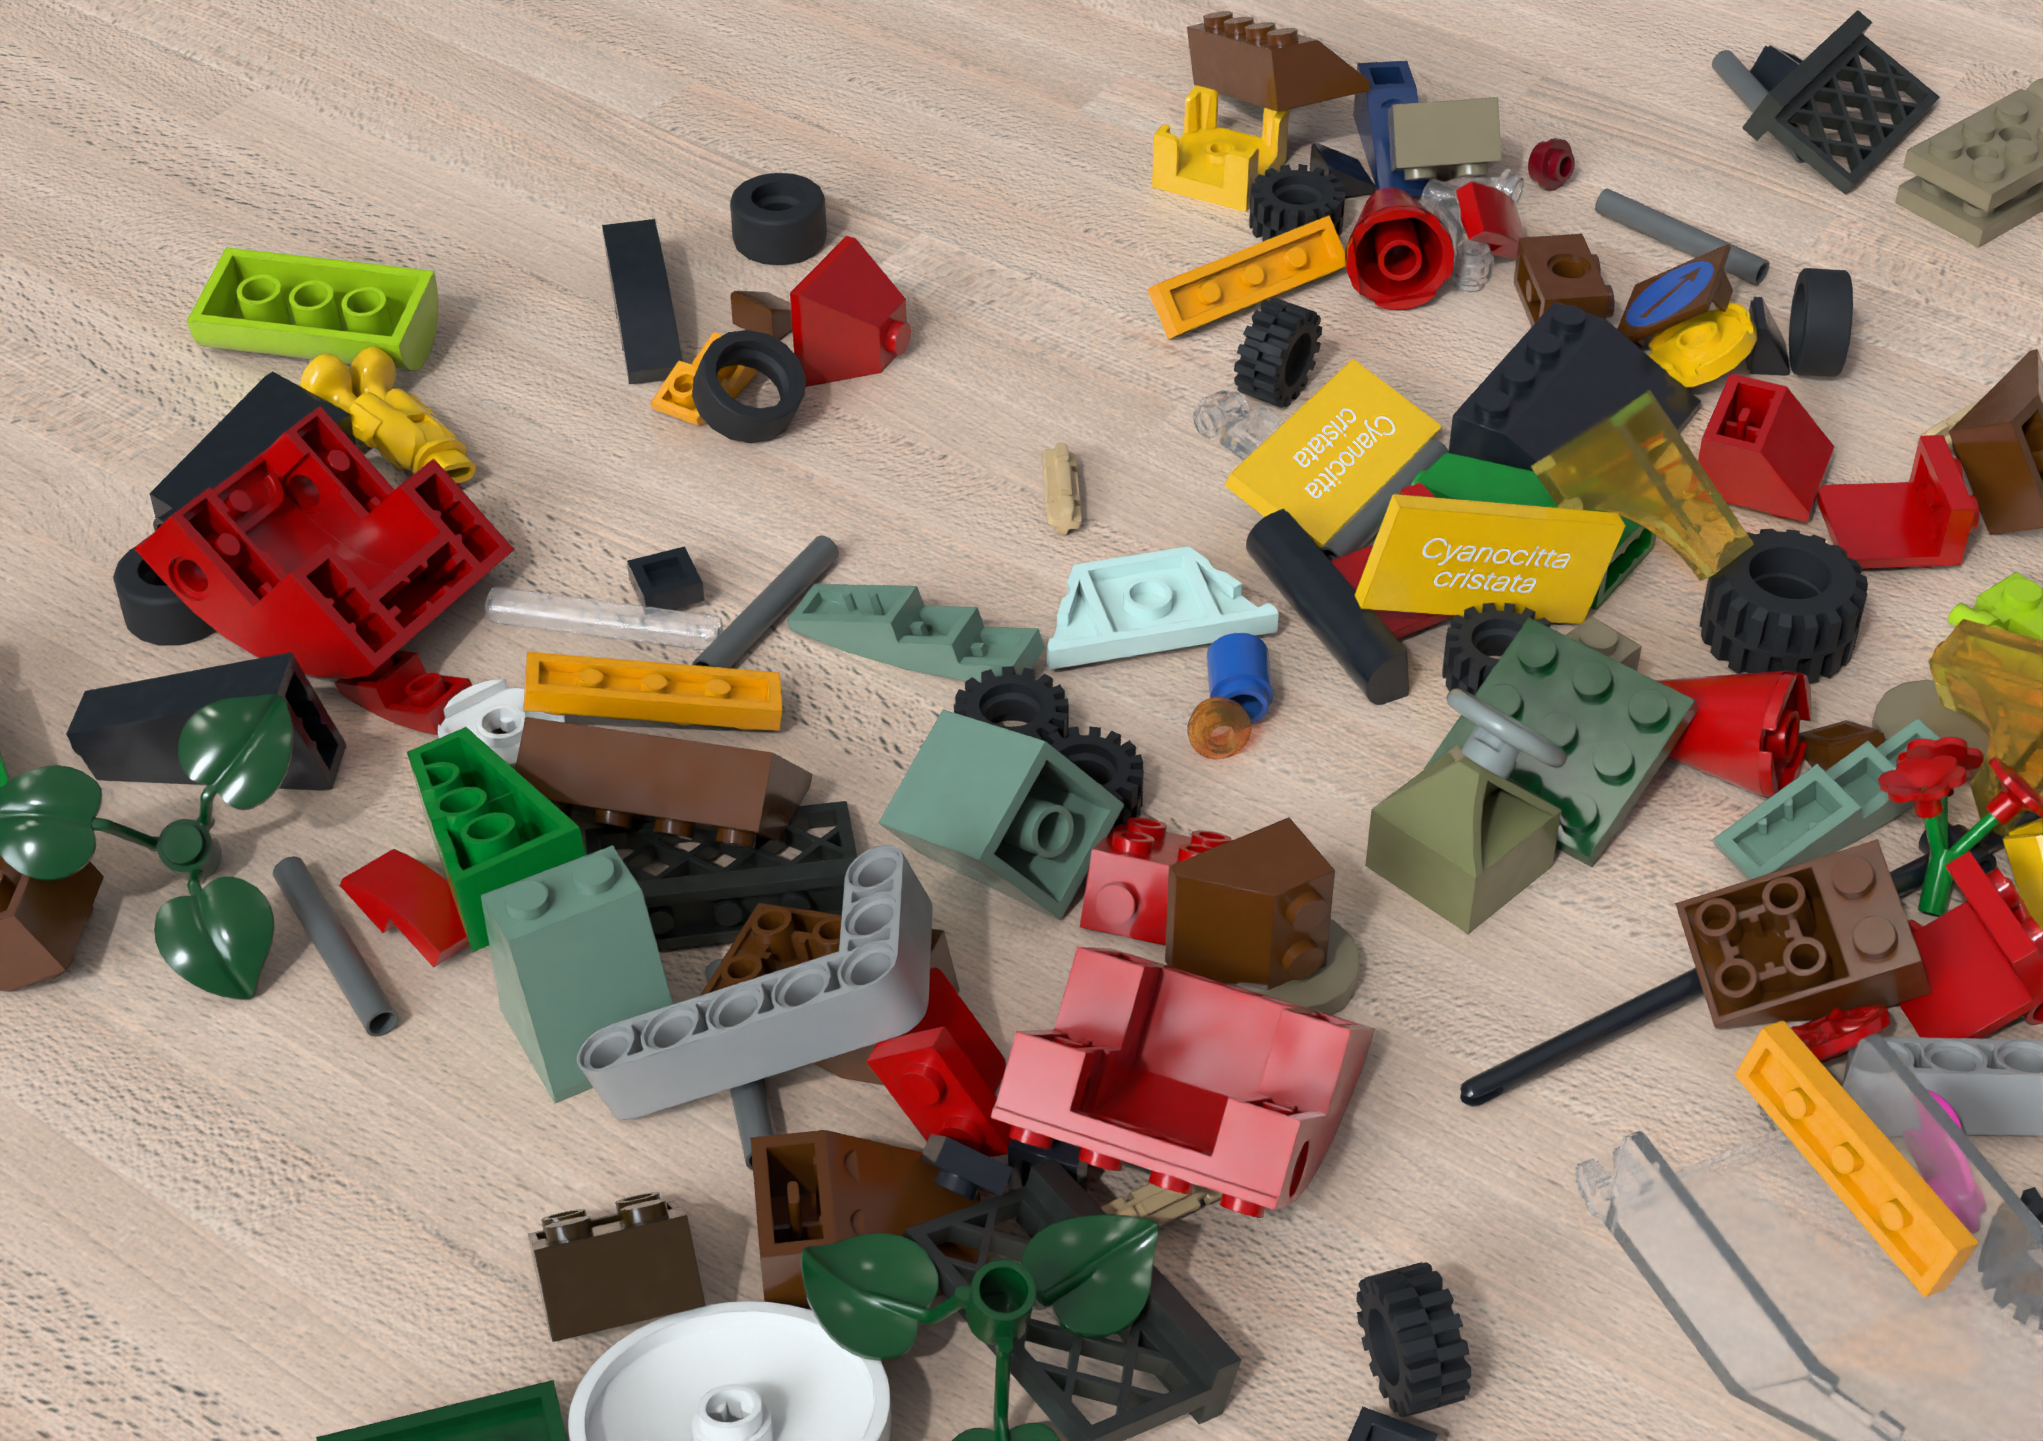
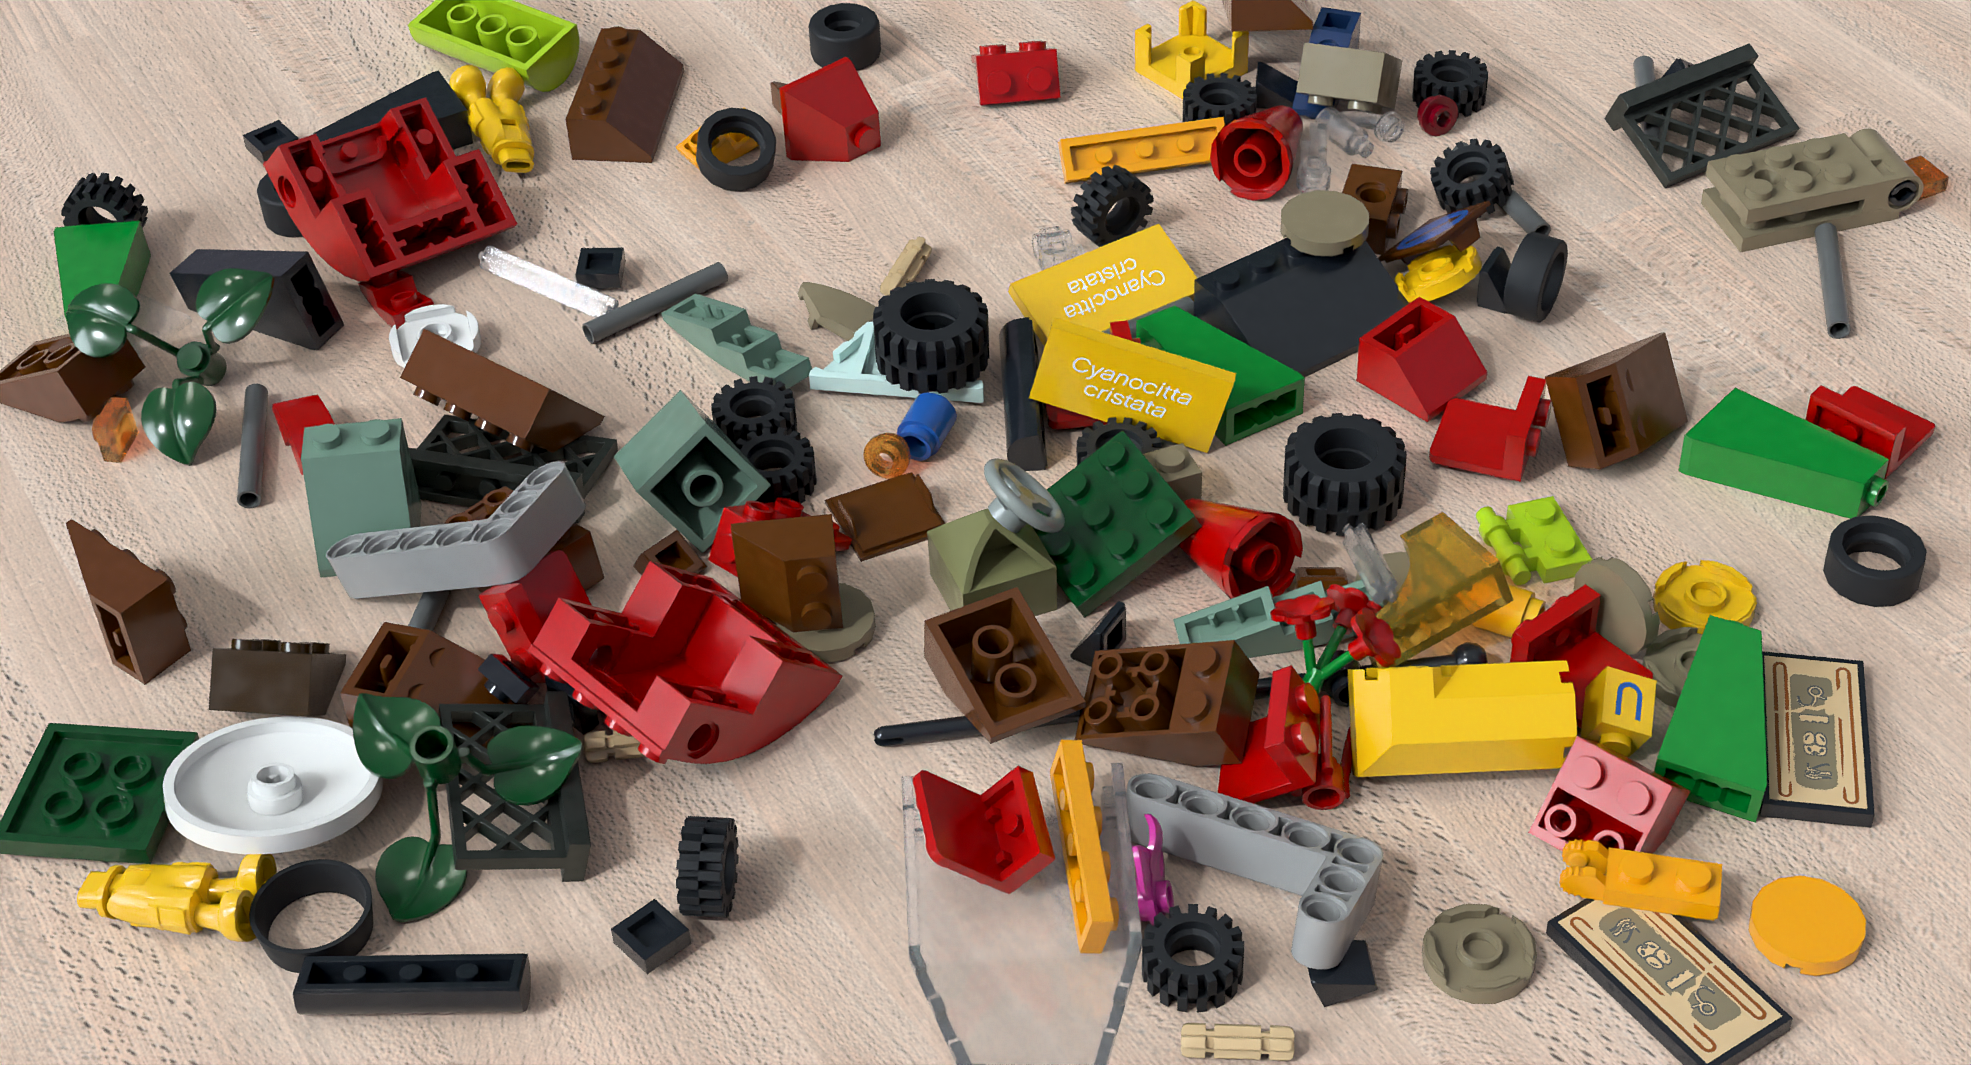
camera: 25 degrees right, 0 degrees up
(77, 521) = (266, 139): none -> black plate
(117, 978) = (115, 429): none -> clear orange plate
(326, 1222) = (131, 605): none -> reddish brown slope
(486, 823) = (360, 385): green wedge -> none
(541, 357) = (623, 98): none -> reddish brown slope
(642, 300) = (714, 72): black slope -> none
(652, 691) = (535, 336): light orange plate -> none
(1014, 560) = (835, 309): none -> dark tan slope
(1027, 215) = (1017, 74): none -> red bracket
(1032, 945) = (671, 551): none -> reddish brown slope
(1193, 561) = (931, 336): none -> black tyre
(1259, 791) = (886, 515): none -> reddish brown piece
(1490, 218) = (1340, 143): red slope -> none
(1536, 117) = (1452, 76): none -> black tyre
(1565, 311) = (1324, 222): none -> dark tan tile
(1578, 961) = (999, 666): none -> reddish brown slope
(1644, 885) = (1105, 635): none -> black slope
(1648, 474) = (1261, 345): clear yellow arch -> none
(1651, 204) = (1468, 162): none -> black tyre
(1750, 1168) = (986, 836): none -> red bracket
(1842, 1030) = (1140, 766): red wheel -> none
(1913, 704) = (1370, 563): none -> clear axle

